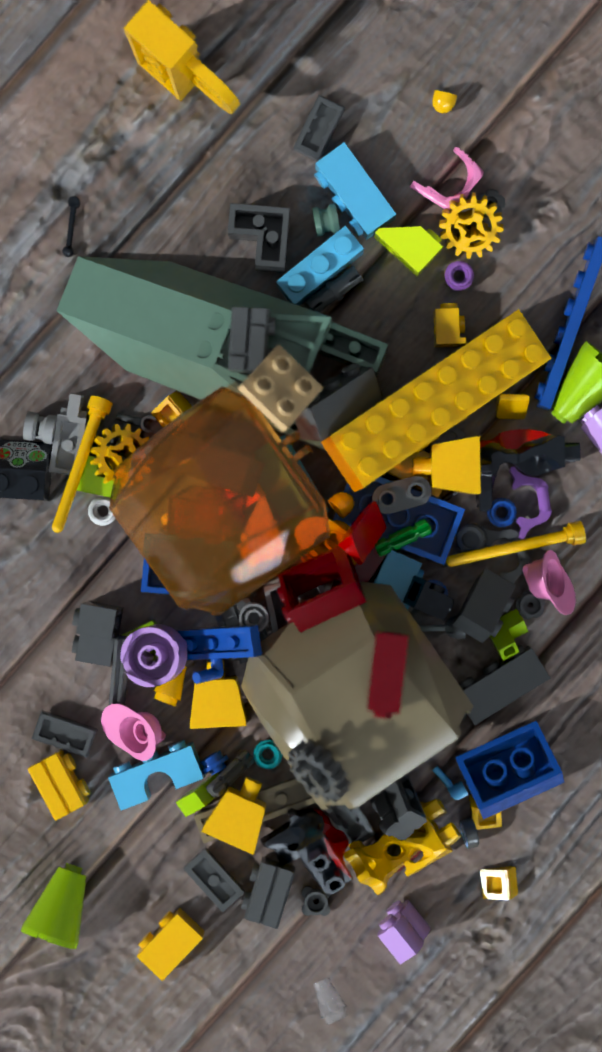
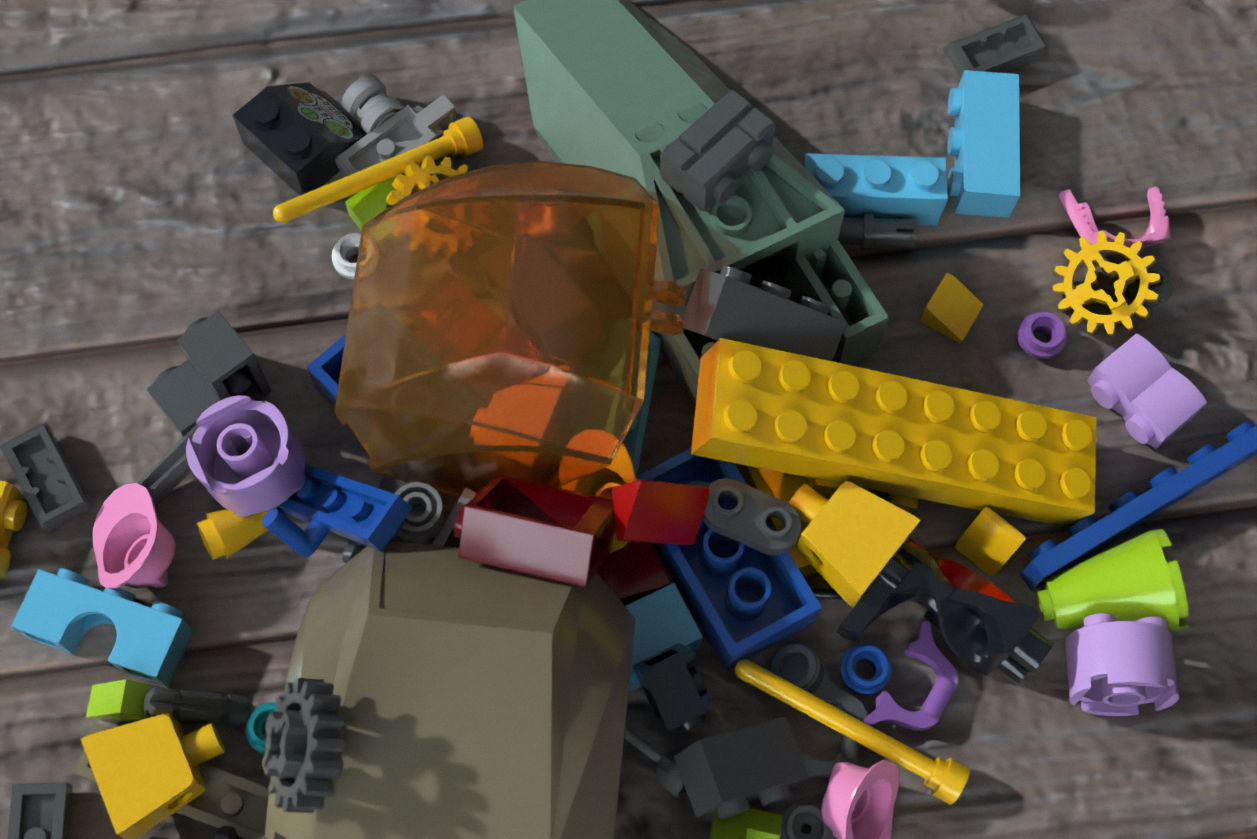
camera: 35 degrees right, 20 degrees down
(214, 763) = (191, 674): blue plate -> none
(218, 703) = (268, 596): yellow torso -> none
(266, 226) = (839, 96): dark grey brick -> none
(280, 388) = (708, 217): tan plate -> none
(325, 220) = (923, 142): sand green wheel -> none
(341, 503) = (661, 461): yellow hinge -> none
(387, 674) = (528, 674): dark red window -> none
(403, 537) = (705, 571): green axle -> none
(406, 297) = (951, 309): none -> yellow slope
(410, 245) = (1007, 252): neon yellow slope -> none
(443, 101) = (1178, 131): yellow hinge -> none
(448, 326) = (985, 370): yellow brick -> none
(529, 268) = (1145, 392): none -> lavender brick

